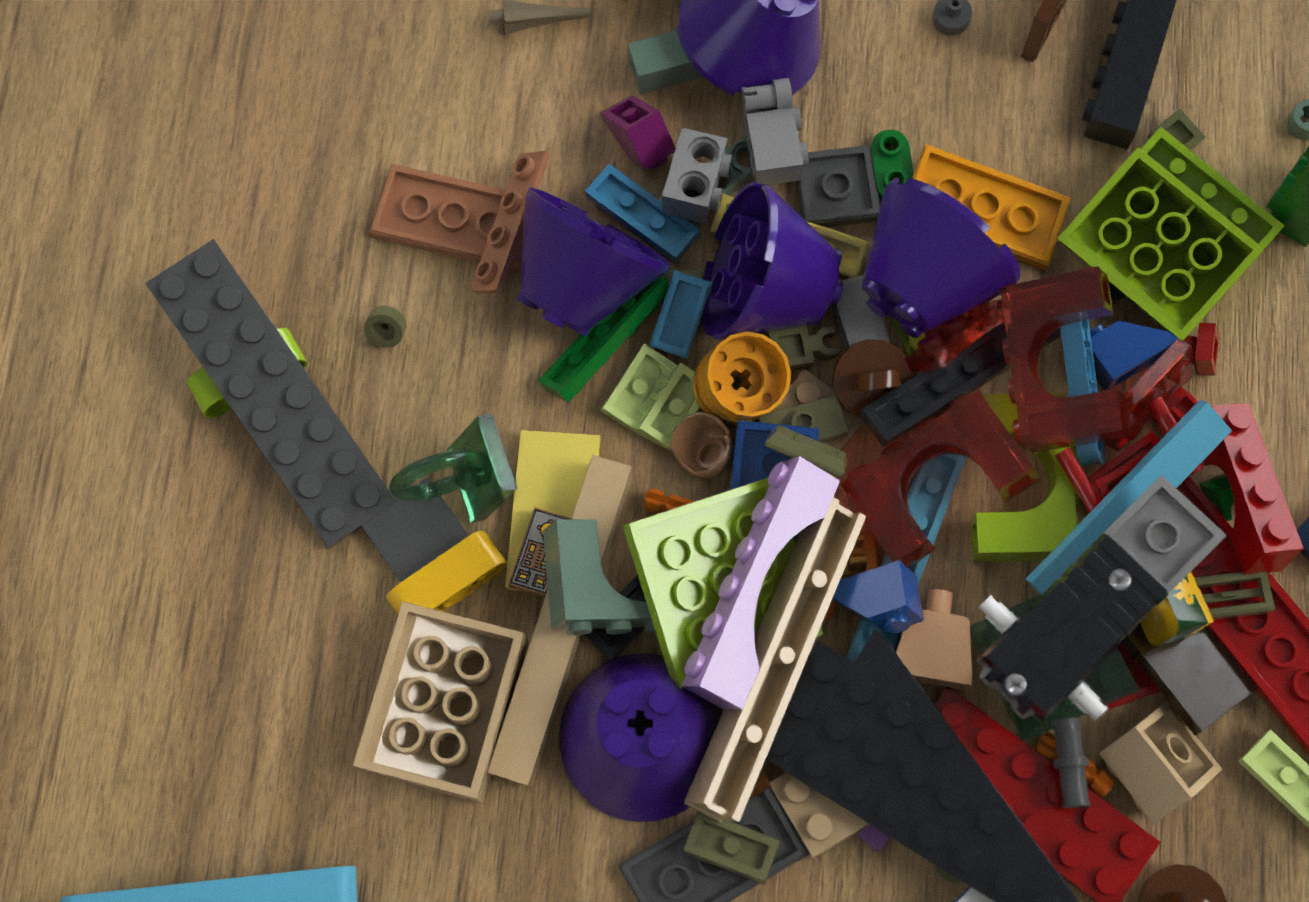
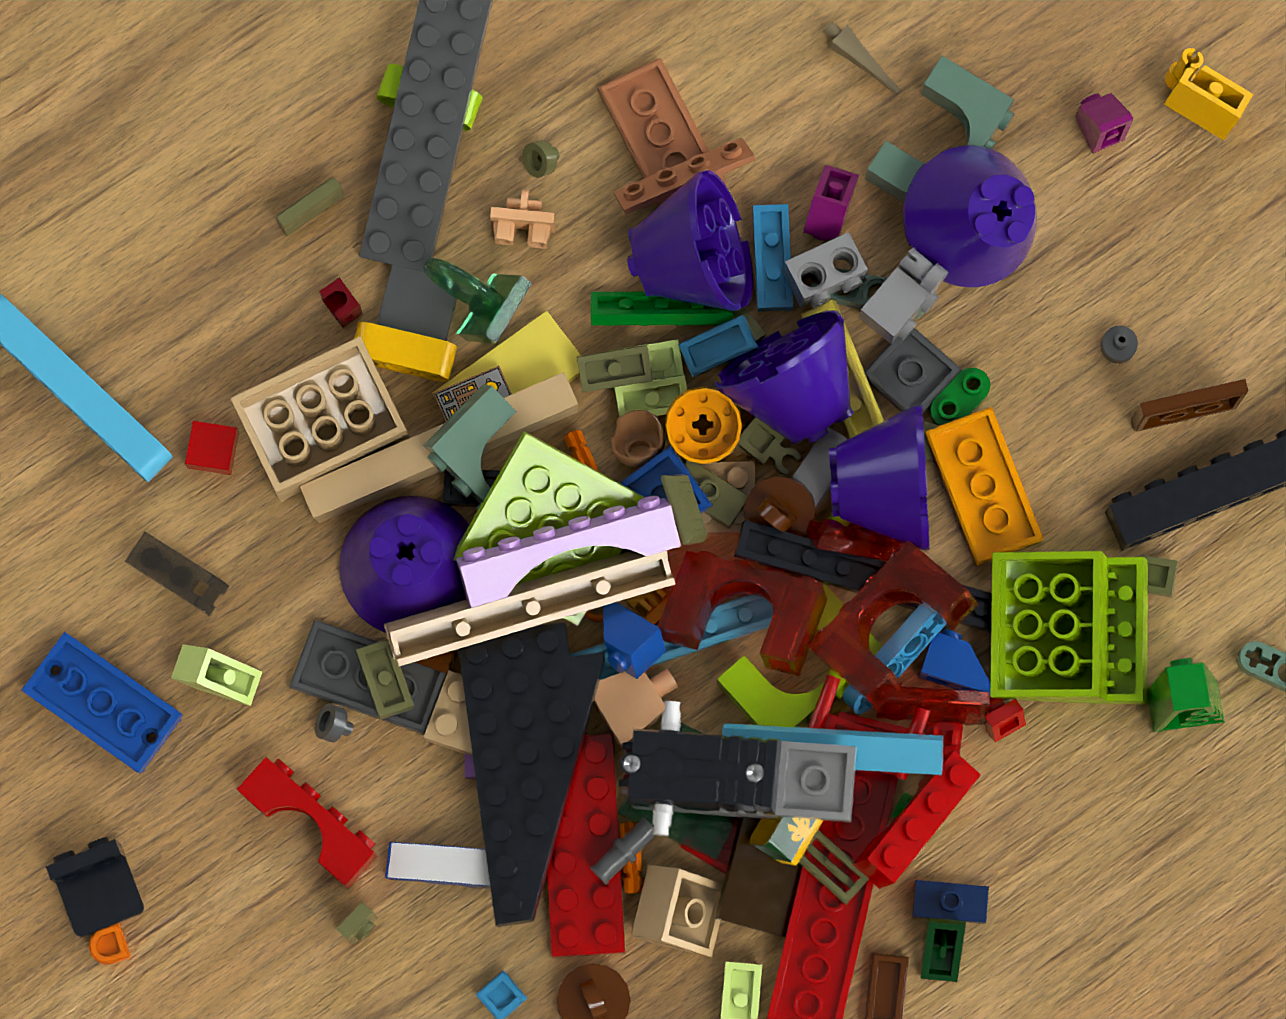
camera: 45 degrees right, 5 degrees up
(245, 551) = (310, 206): none -> olive tile
(354, 596) = (341, 302): none -> dark red piece
(379, 824) = (211, 447): none -> red piece
(423, 379) = (519, 217): none -> light nougat hips
(624, 413) = (614, 368): none -> olive plate

